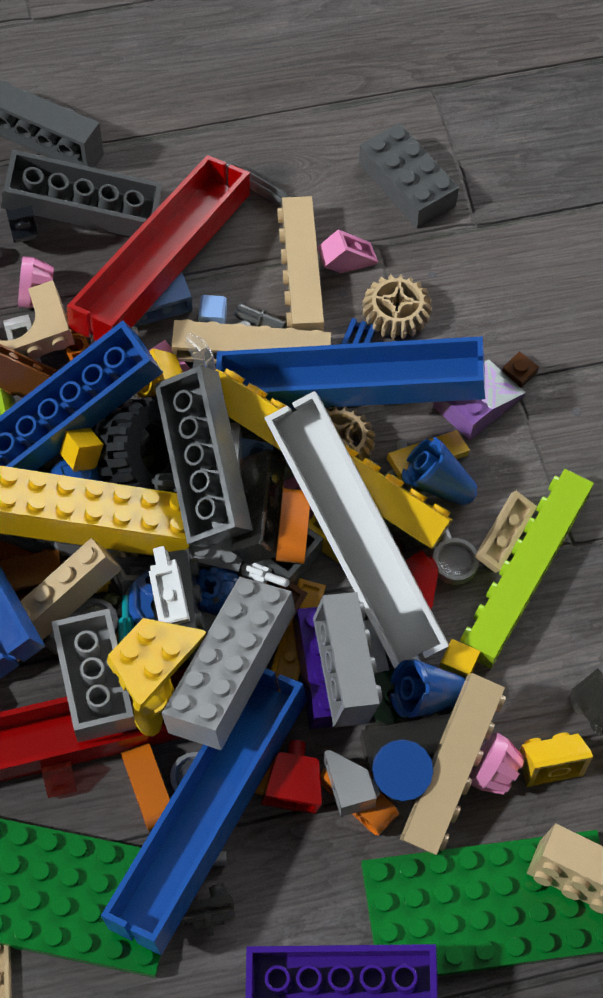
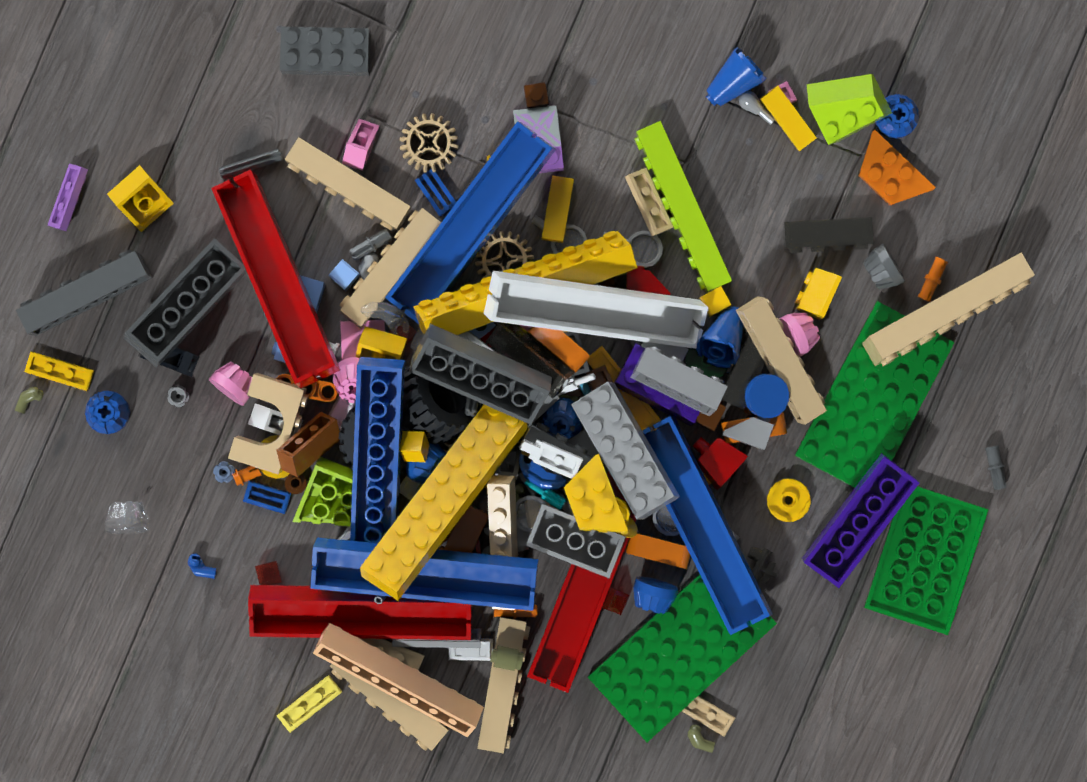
camera: 50 degrees left, 25 degrees up
(93, 811) = (654, 594): none -> blue piece
(111, 69) = (67, 197): none -> medium lavender plate
(153, 119) = (140, 198): none -> yellow slope
(306, 874) = (800, 500): none -> yellow plate
(338, 739) = (712, 421): none -> reddish brown brick
(439, 473) = (582, 219): blue cone -> none

